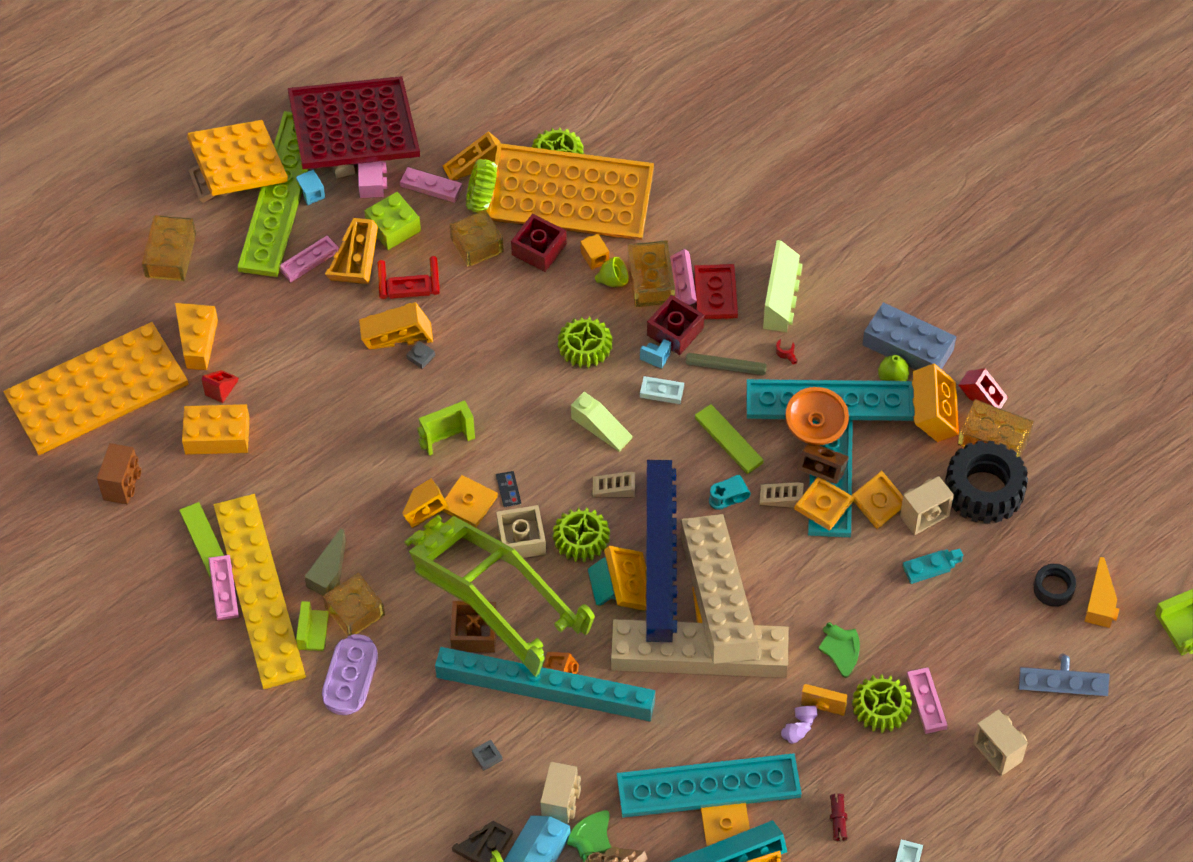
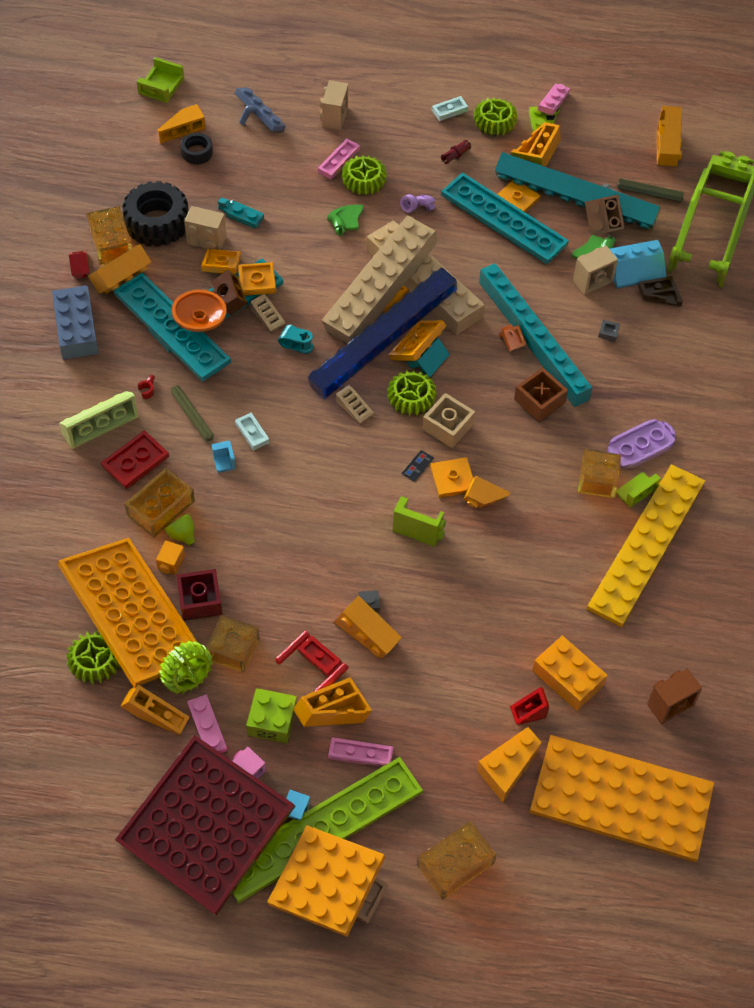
camera: 135 degrees left, 0 degrees up
(201, 533) = (651, 607): lime tile -> none
(223, 587) = (671, 561): bright pink tile -> none
(327, 569) = (591, 511): olive slope -> none
(440, 536) = (508, 459): lime piece -> none
(574, 336) = (255, 509): lime gear -> none
(599, 421) = (315, 448): yellowish green slope -> none
(675, 323) = (192, 455): dark red brick -> none
(683, 277) = (140, 482): bright pink plate -> none
(729, 439) = (252, 371): lime tile -> none
(824, 699) = (395, 193): light orange plate -> none
(893, 369) = (107, 319): lime helmet -> none

